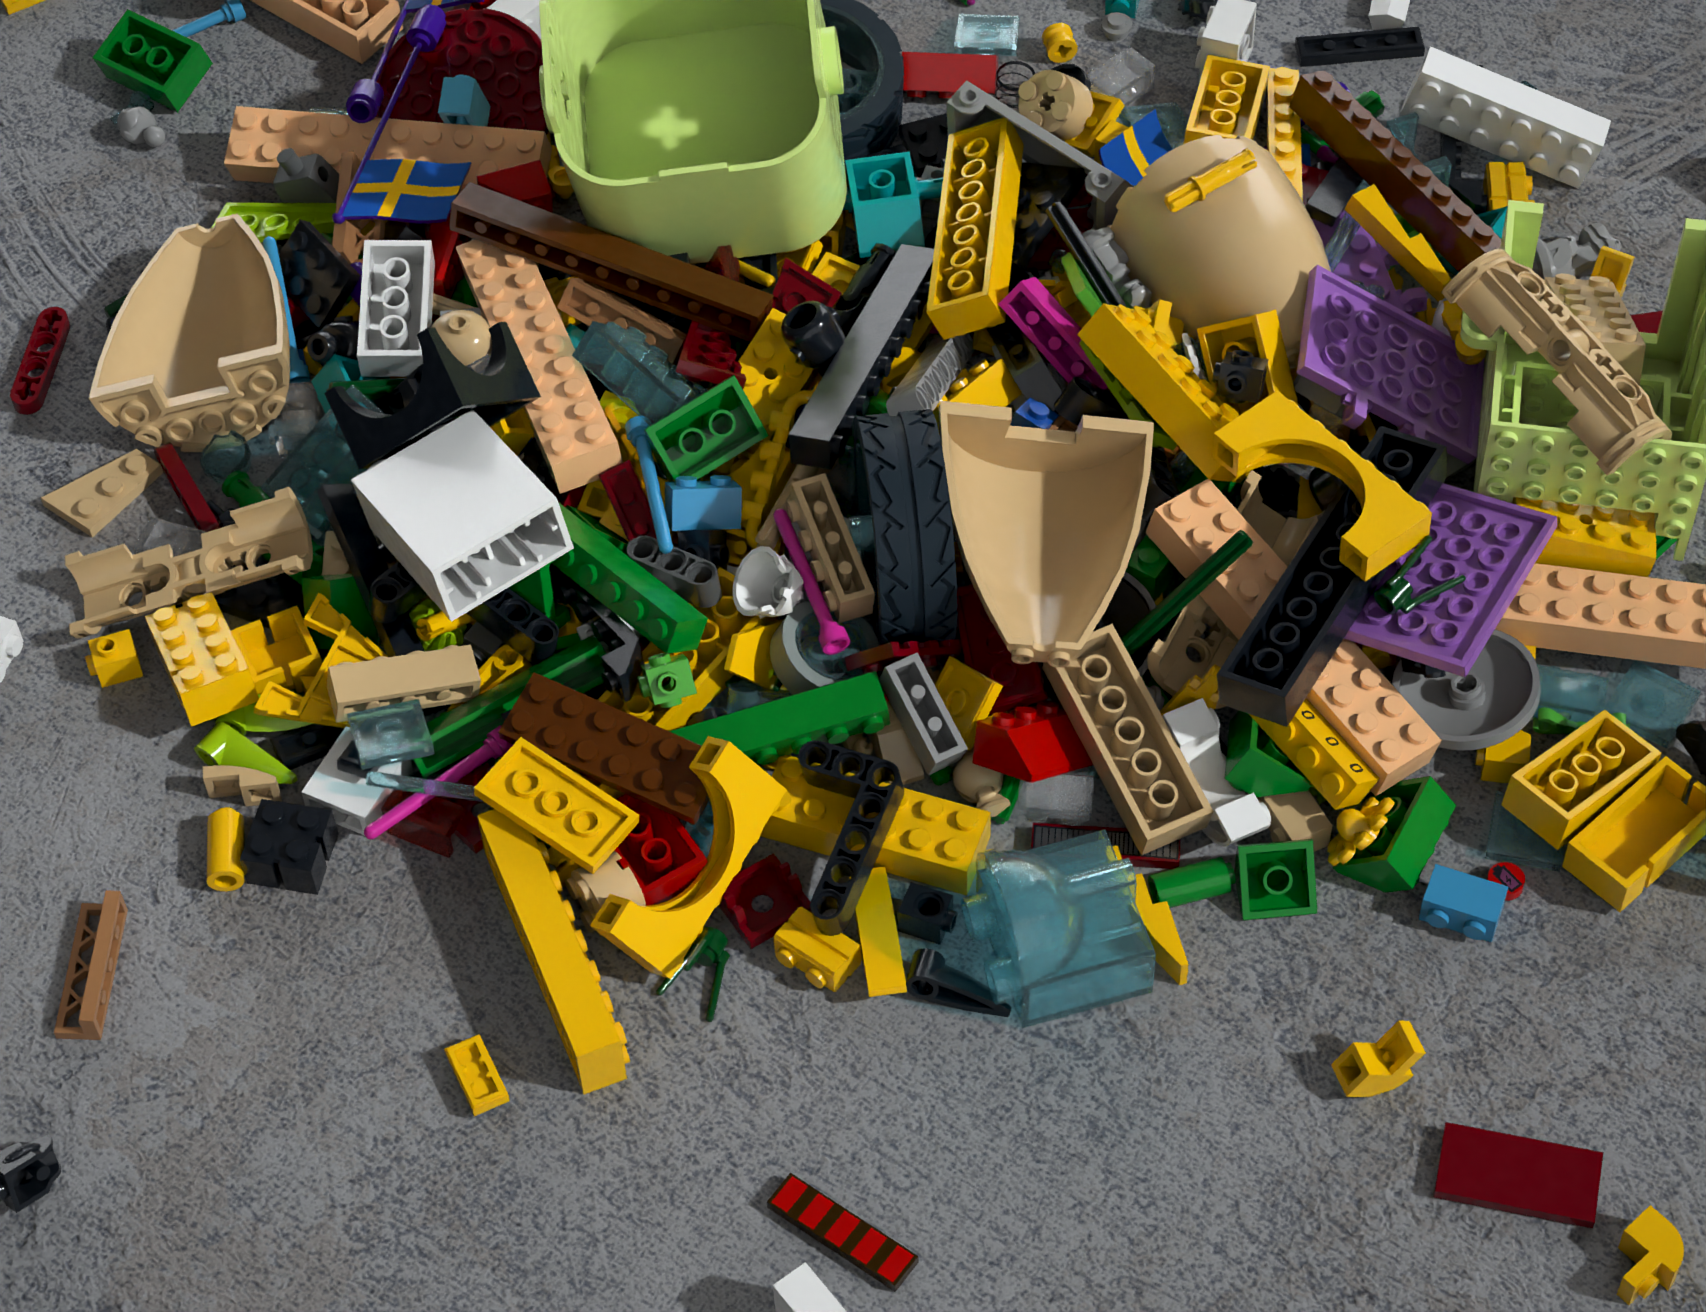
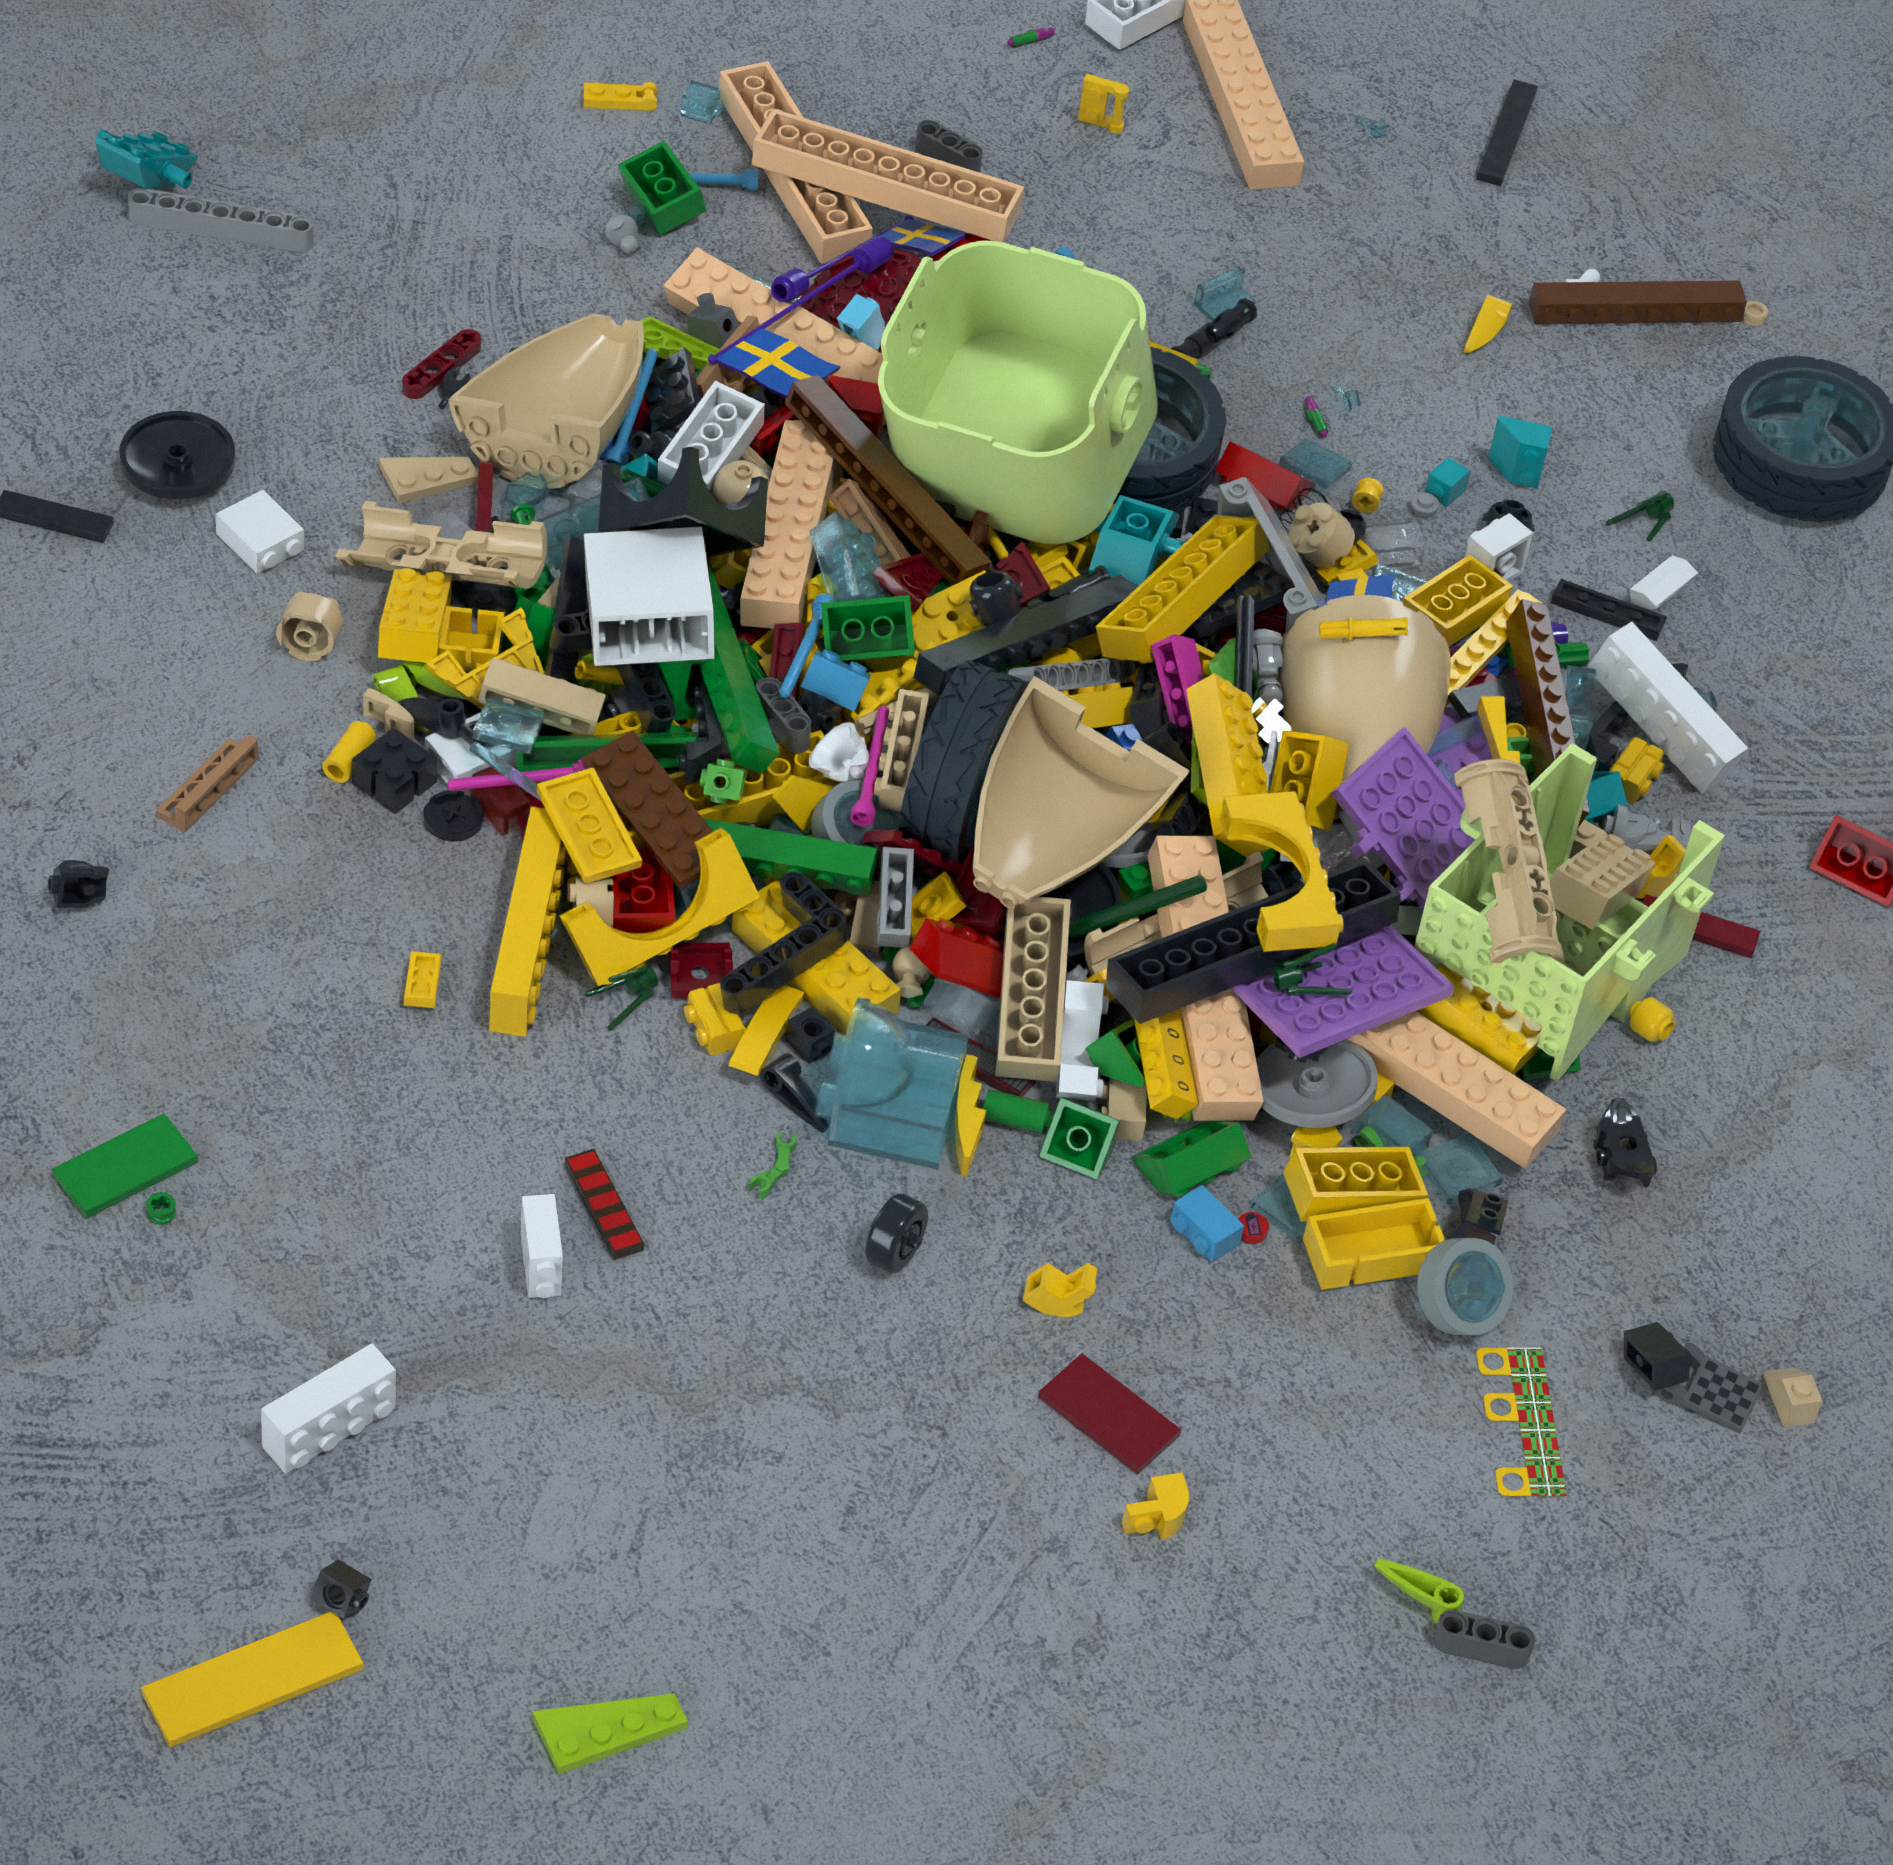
camera: 20 degrees right, 5 degrees down
(69, 382) = (450, 385): none -> black hand
(92, 728) = (309, 626): none -> tan brick
(114, 658) = (357, 589): yellow brick -> none
(310, 761) = (439, 717): none -> black piece
(383, 864) = (453, 816): none -> black tile
(997, 1082) = (781, 1168): none -> bright green piece
(1177, 1095) = (896, 1233): none -> black wheel
(1240, 377) = (1288, 774): black brick -> none
(1357, 829) = (1160, 1131): yellow animal -> none

